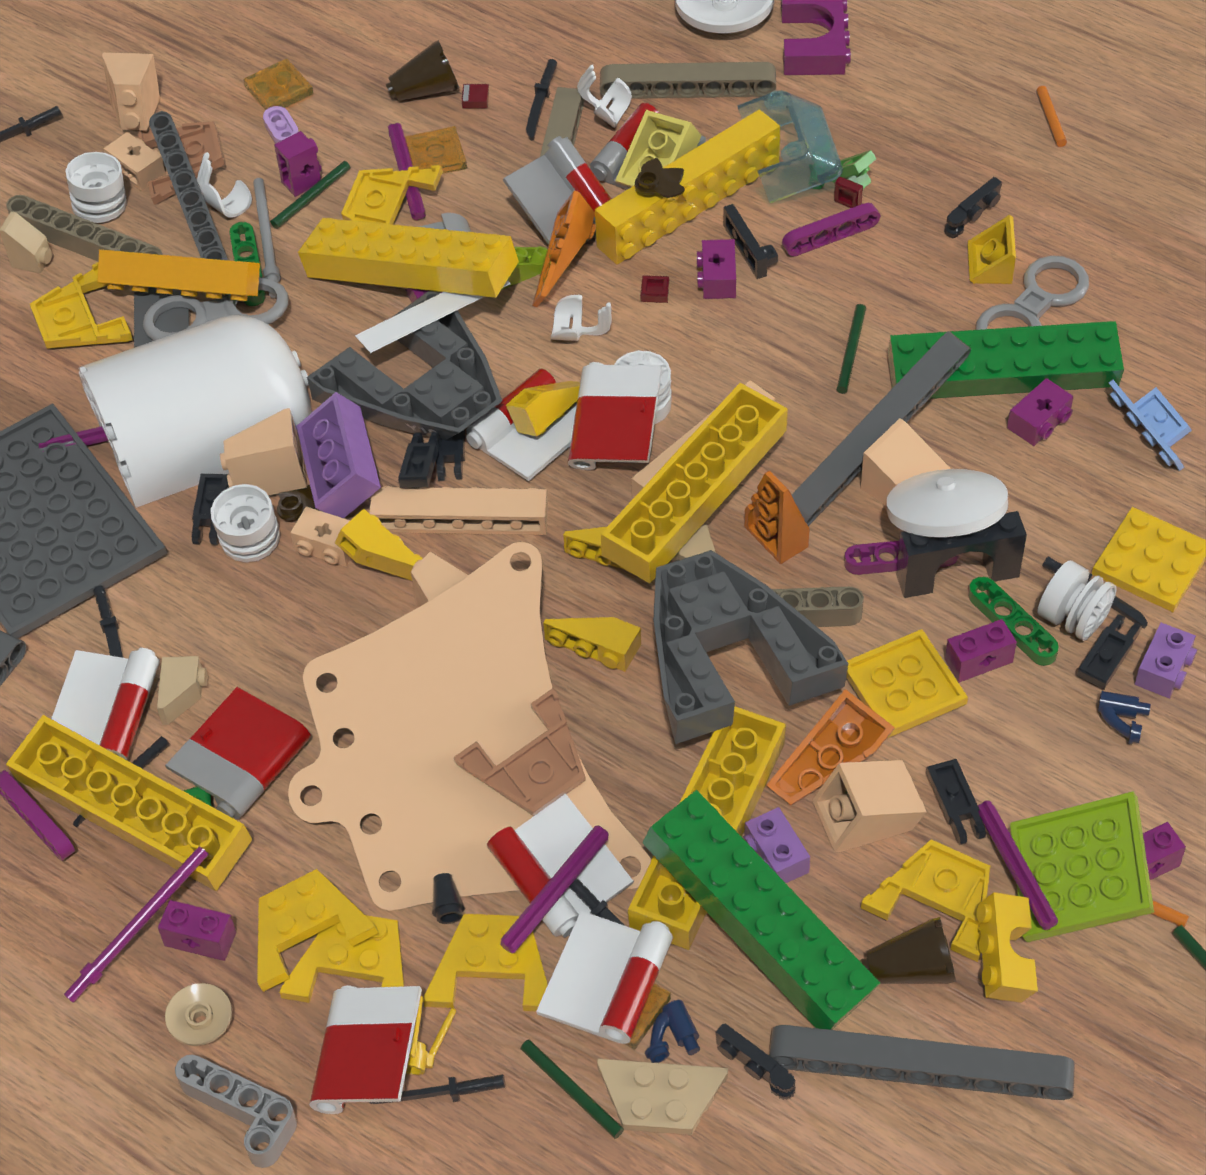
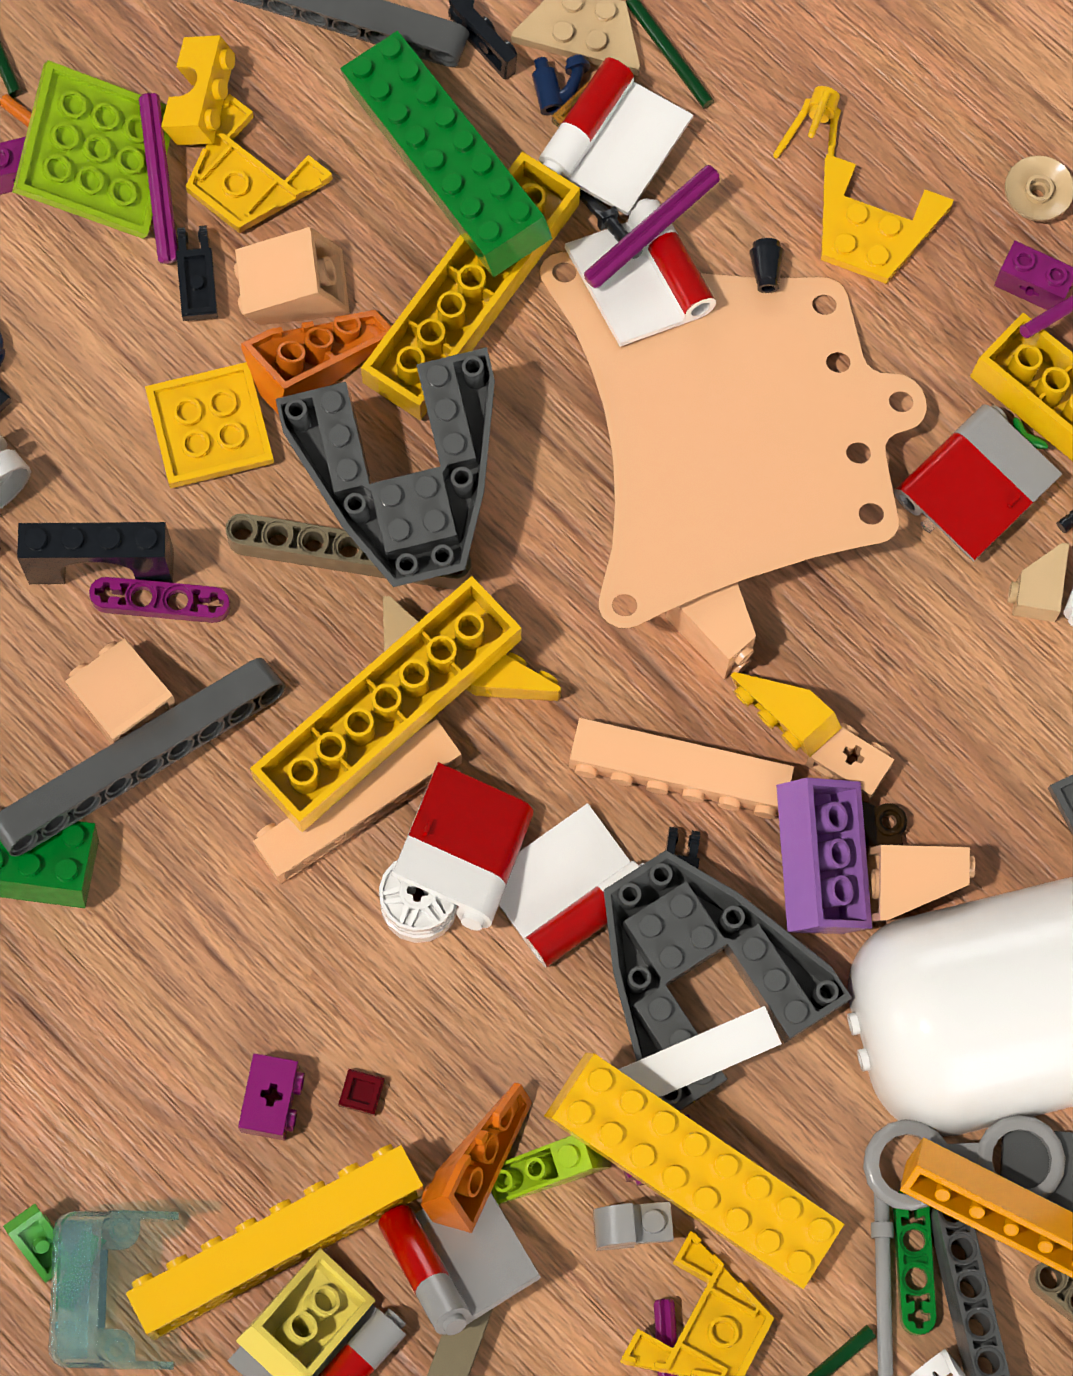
camera: 175 degrees left, 20 degrees up
(208, 489) = (991, 843): black hinge -> none
(231, 1102) = (1010, 92): light grey beam -> none
(245, 523) = (961, 772): white wheel -> none
(298, 913) = (925, 279): yellow wing -> none
(365, 1046) = (872, 108): red door -> none
(419, 461) = (722, 827): black hinge -> none
(454, 1089) = (786, 69): black sword -> none
(478, 954) = (731, 211): yellow wing -> none
(537, 771) = (647, 367): nougat wing -> none
(541, 405) = (543, 898): yellow slope -> none
(572, 307) = (505, 1038): white helmet -> none
(598, 638) = (541, 549): yellow slope -> none
(659, 180) = (316, 1212): dark brown plate -> none
(756, 257) = (209, 1106): black hinge -> none
(776, 519) = (295, 643): orange wedge -> none
(778, 844) = (404, 252): medium lavender brick -> none
(848, 192) = (55, 1197): dark red tile -> none
(851, 349) = (128, 932): dark green bar -> none
(857, 218) = (97, 1138): magenta beam -> none
(913, 957) = (297, 99): dark brown cone -> none
(947, 503) = (95, 592): white dish -> none
(980, 650) = (111, 441): magenta brick -> none
(1016, 618) = (63, 482): green beam -> none

